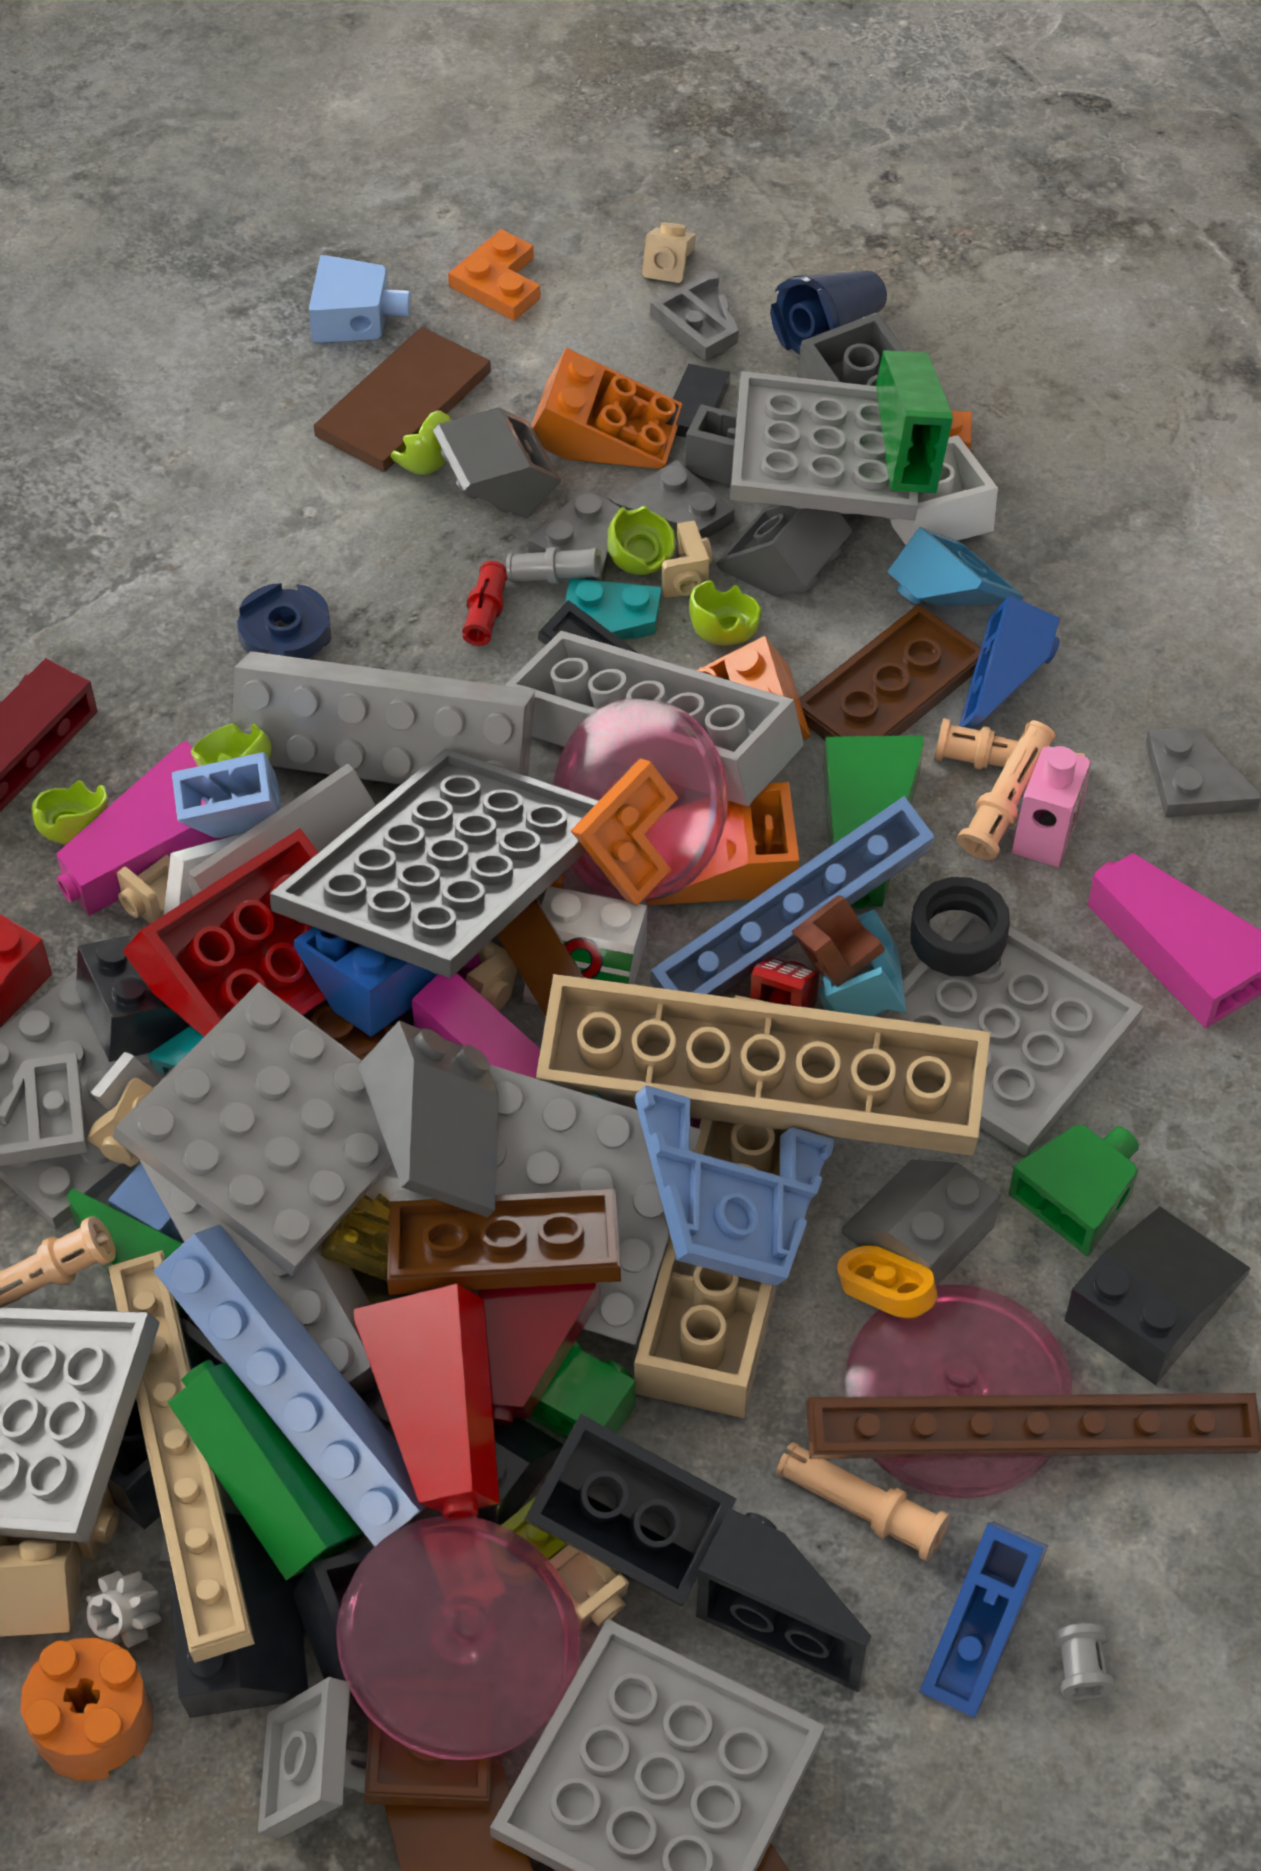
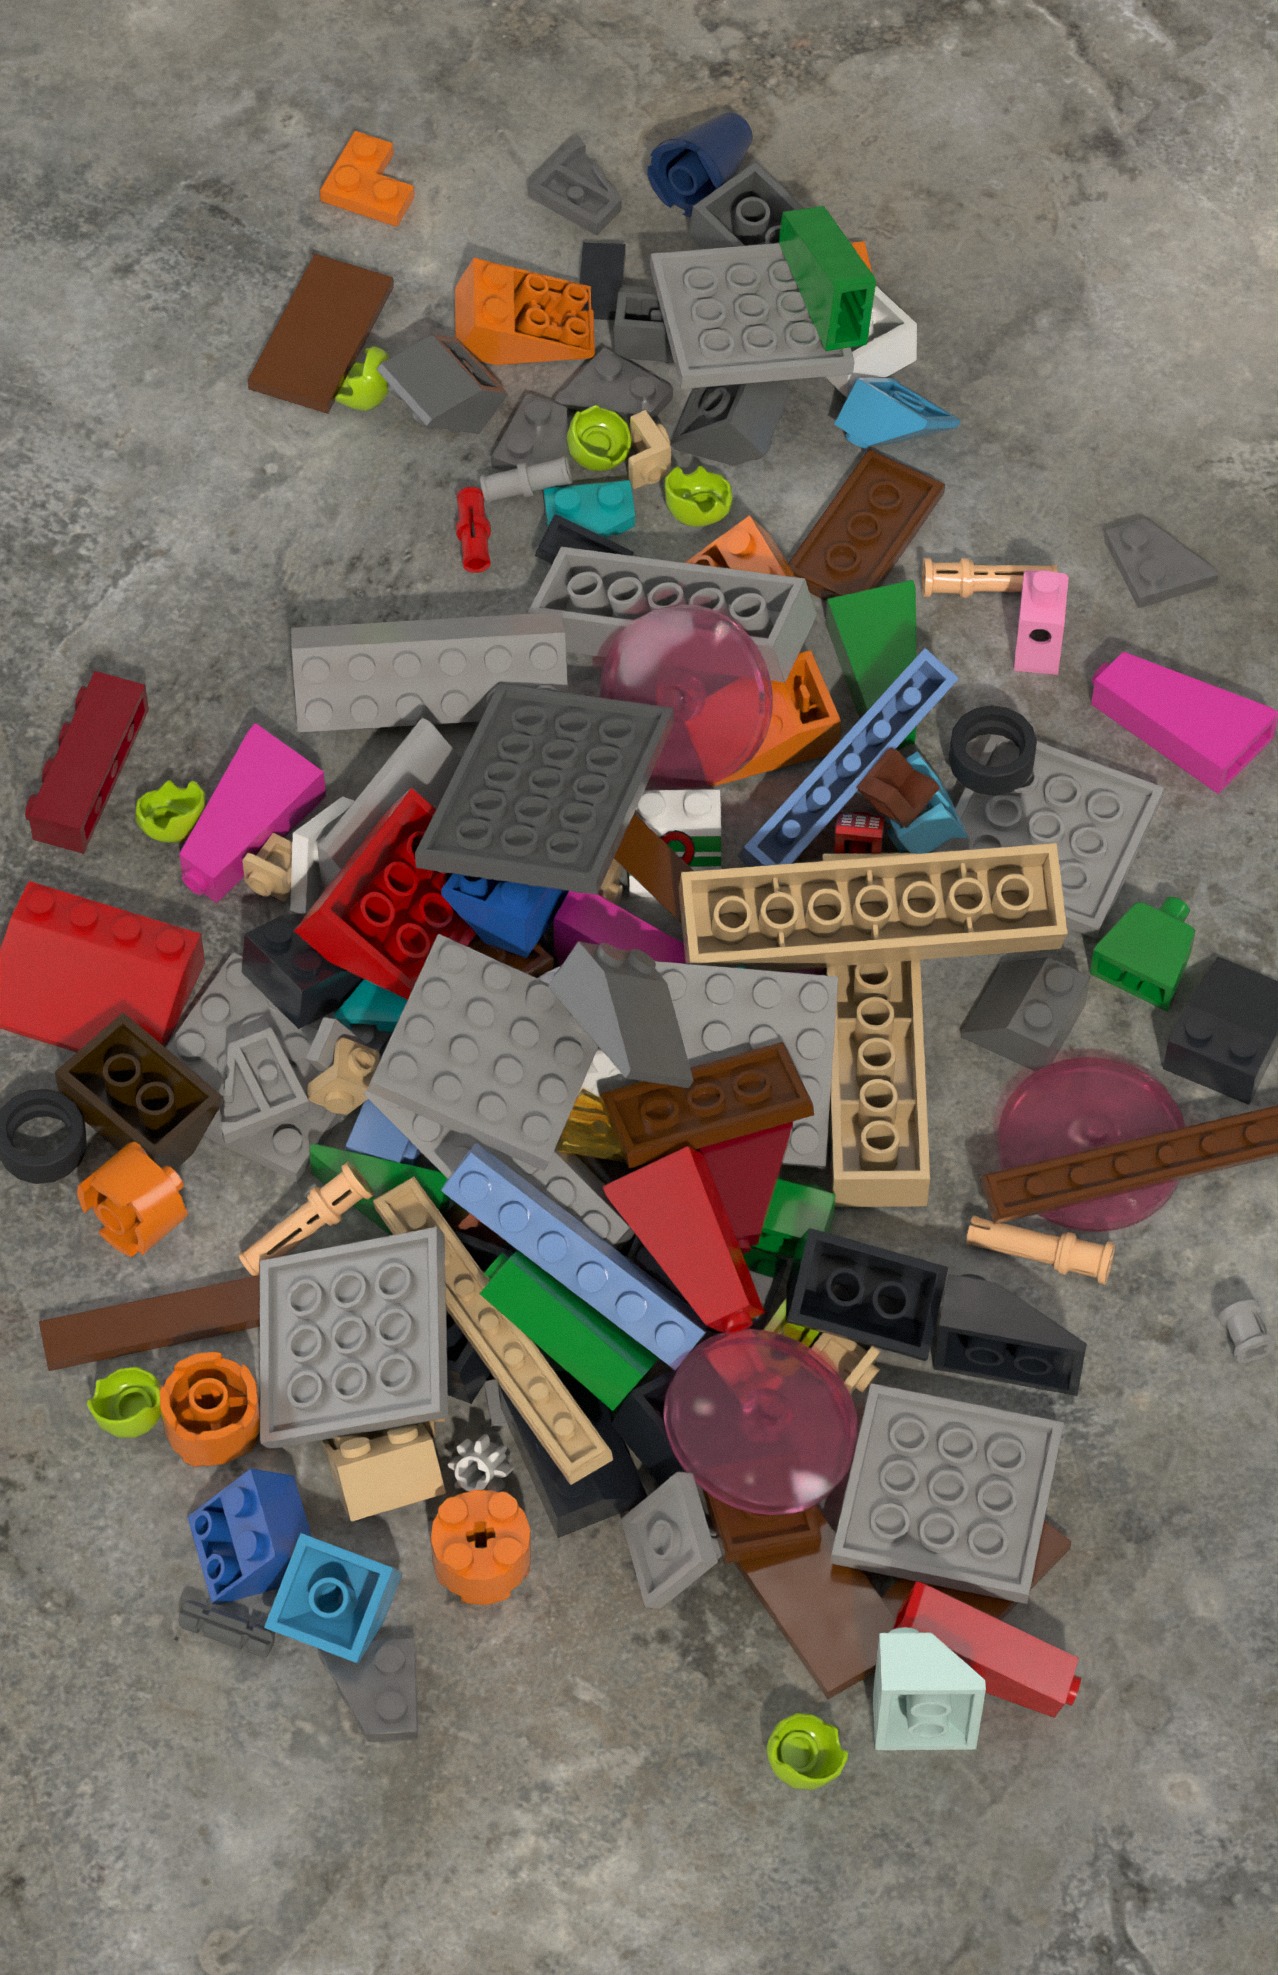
camera: 15 degrees left, 5 degrees up
(230, 743) = (309, 730): lime hair -> none
(235, 792) = (328, 769): light blue torso -> none
(272, 603) = (293, 610): dark blue plate -> none
(353, 301) = (239, 239): light blue torso -> none
(616, 831) = (686, 733): orange plate -> none
(667, 252) = (526, 125): tan bracket -> none
(725, 1211) = (876, 1040): medium blue wing -> none
(887, 1281) = (1014, 1068): light orange plate -> none
(983, 1618) = (1162, 1316): blue slope -> none
(998, 808) = (994, 632): light nougat pin -> none
(1013, 647) = (967, 481): blue slope -> none

